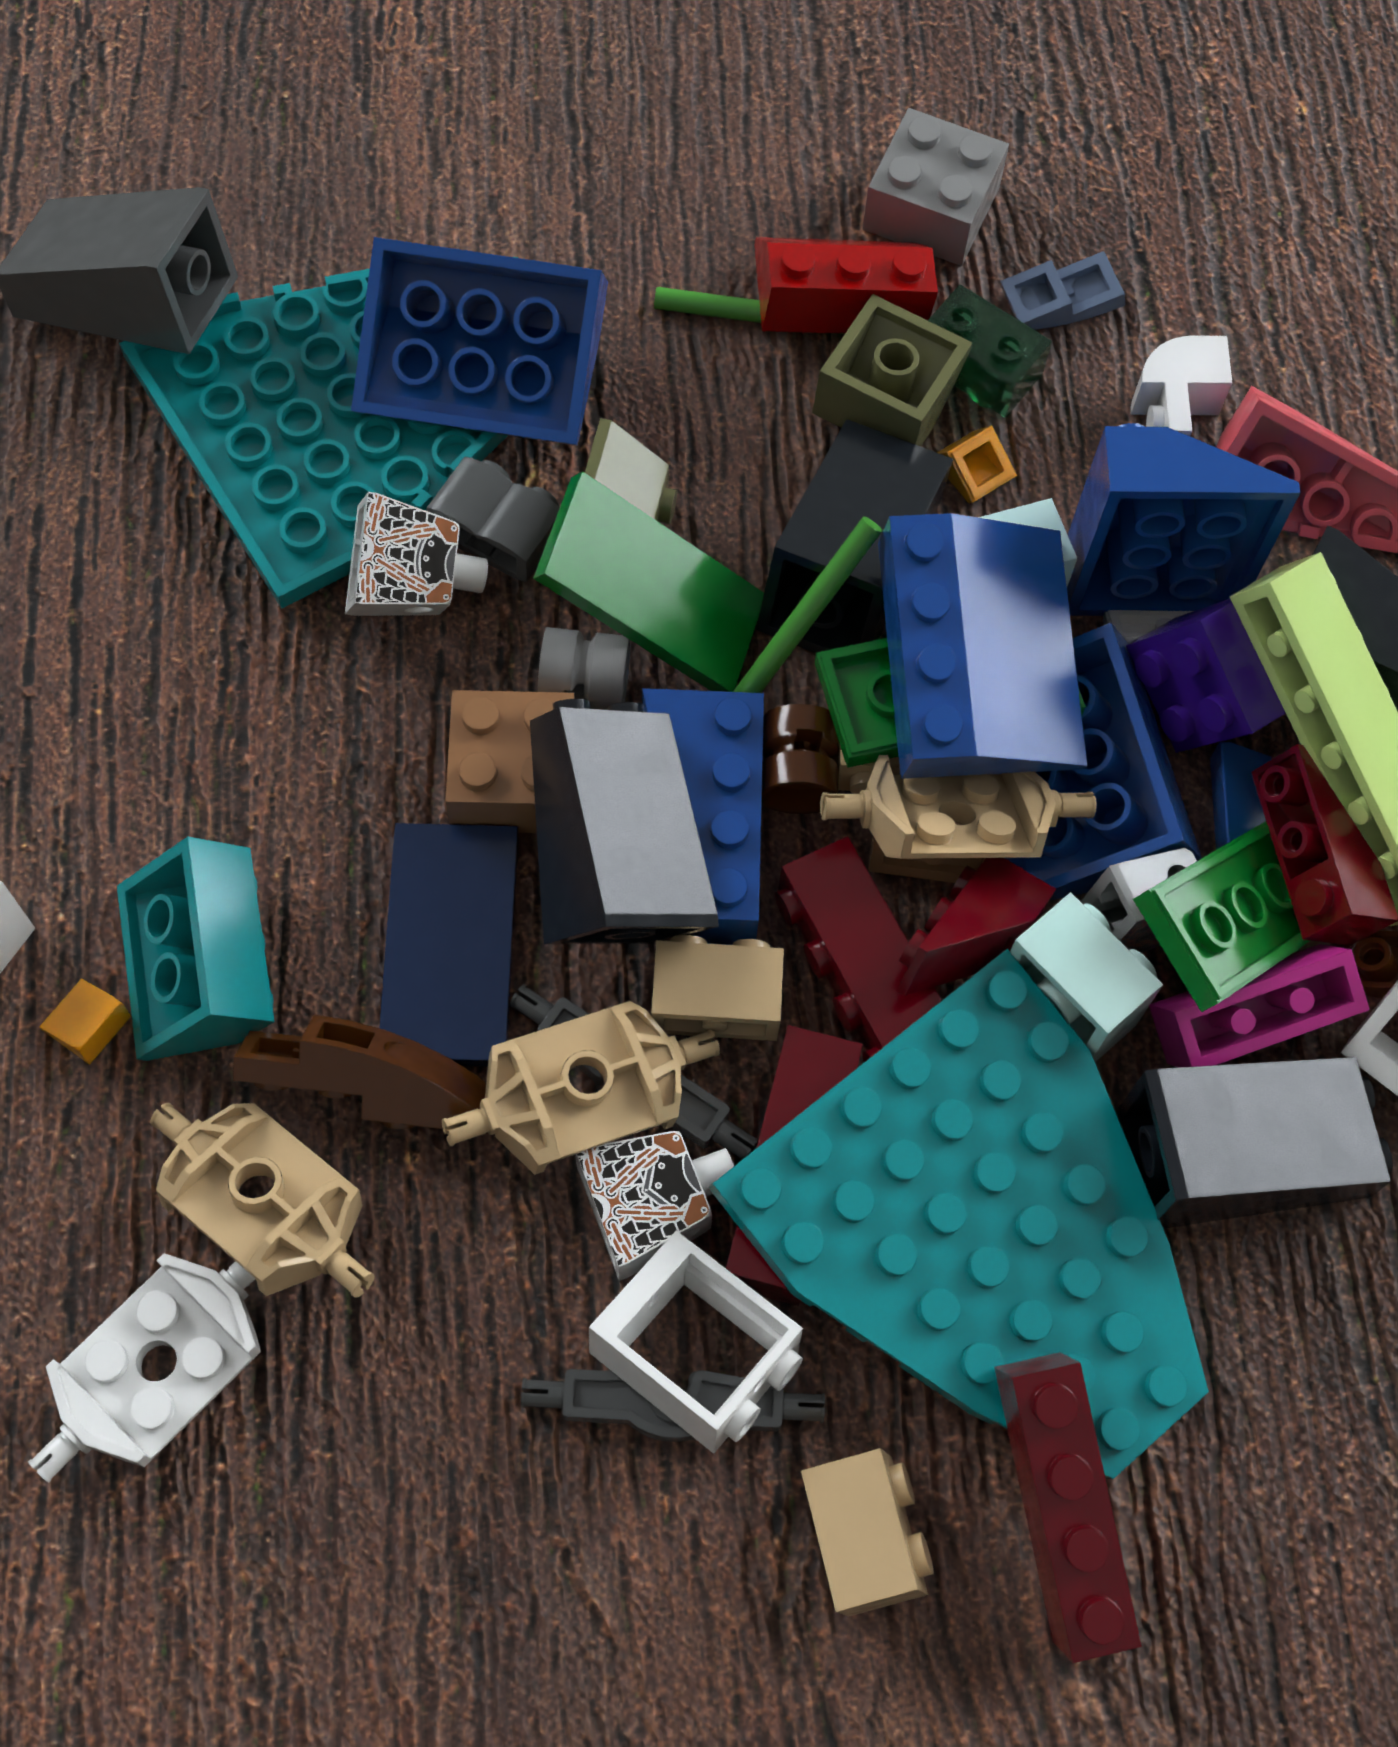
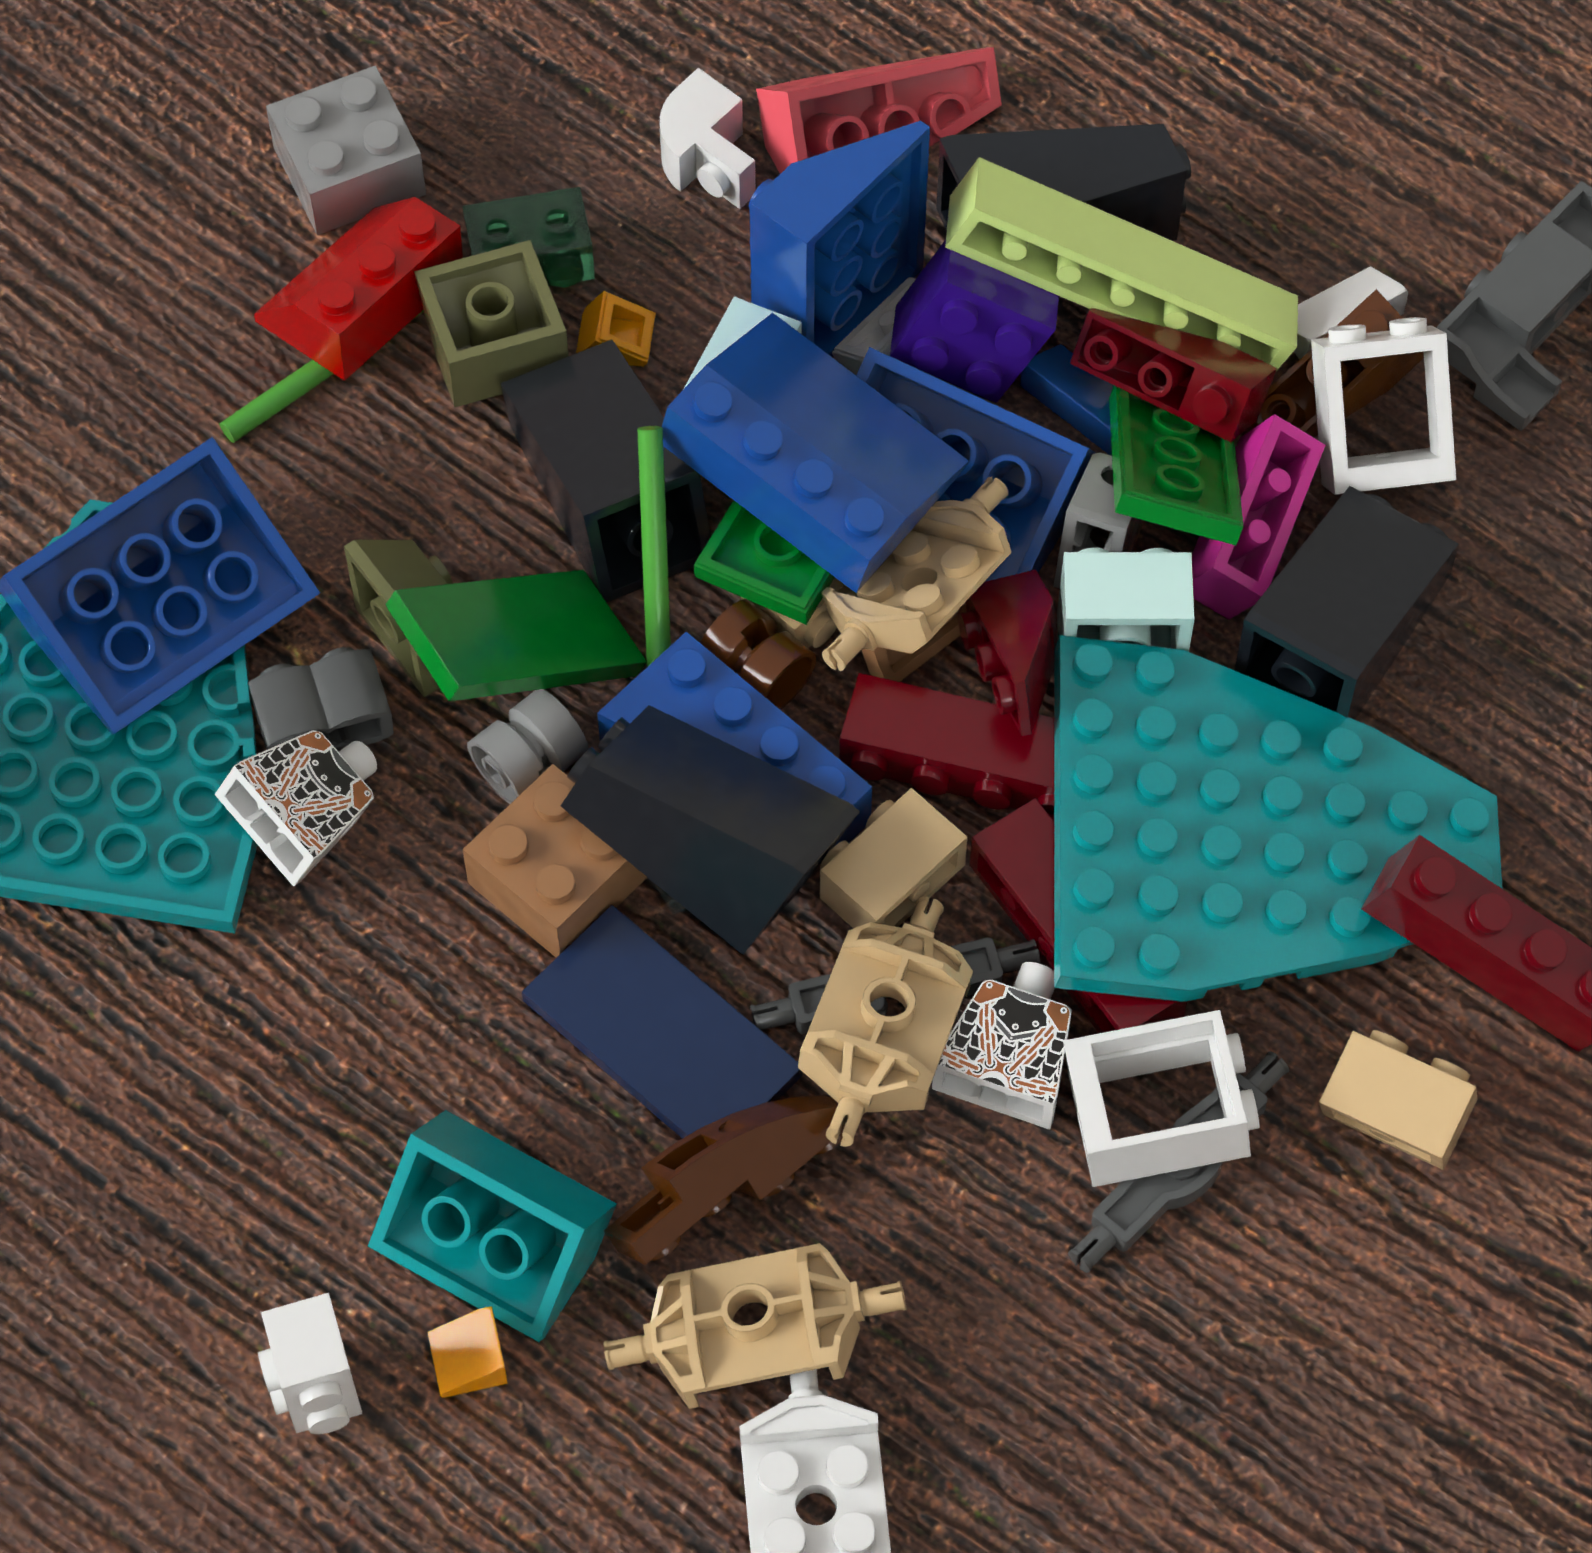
camera: 45 degrees left, 5 degrees down
(1064, 296) = (531, 145): sand blue slope -> none

